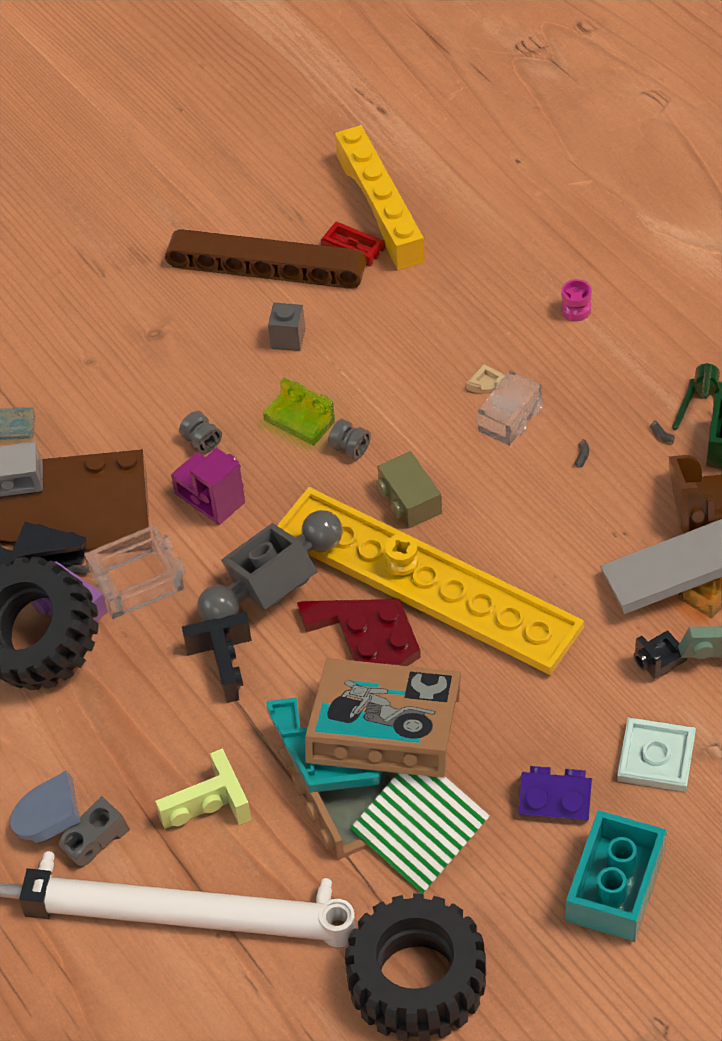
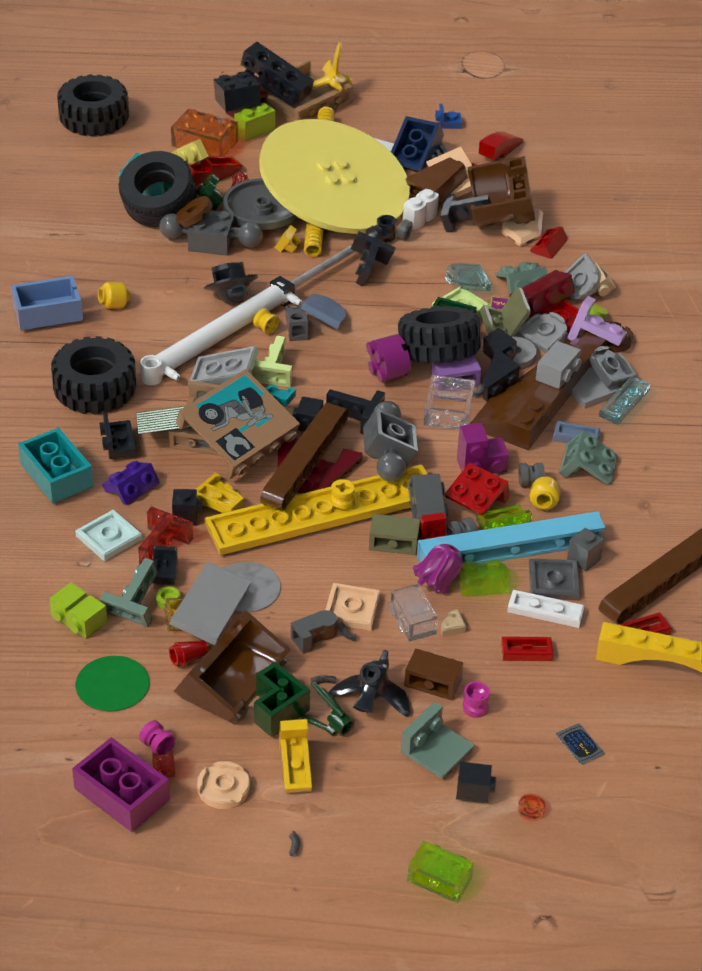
camera: 120 degrees right, 10 degrees down
(81, 949) = (230, 282): none -> black helmet
(82, 435) = (566, 431): none -> sand blue tile
(108, 664) = (388, 358): none -> magenta brick
(122, 864) = (266, 321): none -> yellow wheel
(130, 404) = (589, 454): none -> sand green bracket
(223, 403) = (545, 493): none -> yellow head
(270, 835) = (224, 365): none -> light grey tile
(276, 684) = (307, 411): none -> black brick
(277, 451) = (477, 489): none -> red bracket
(280, 359) = (516, 540): none -> medium azure tile
(339, 480) = (426, 495): none -> dark grey brick
(345, 340) = (554, 578): none -> flat silver tile
(368, 627) = (304, 456): none -> reddish brown beam
(374, 452) = (432, 526): none -> red bracket
(394, 325) = (546, 608): none -> white tile
(398, 389) = (484, 578): none -> clear neon green bracket
(436, 409) = (439, 567): none -> magenta piece
(460, 312) = (521, 648): none -> red tile
(496, 690) = (219, 495): none -> yellow wing
(497, 859) = (118, 438): none -> black bracket
(543, 470) = (353, 605): none -> light nougat tile
(544, 220) = (580, 743): none -> sticker
(552, 698) = (186, 504): none -> black brick
(575, 347) = (433, 674): none -> reddish brown brick
(583, 584) = (263, 587): none -> flat silver sticker
(612, 471) = (313, 629): none -> dark grey leg
(617, 691) = (164, 529): none -> clear red bracket
(641, 372) = (374, 683): none -> black animal
(654, 209) = (531, 807): none -> clear red tile
(660, 299) = (433, 743): none -> sand green bracket
(680, 243) = (475, 782): none -> black brick
(685, 621) = (166, 592): none -> lime tile

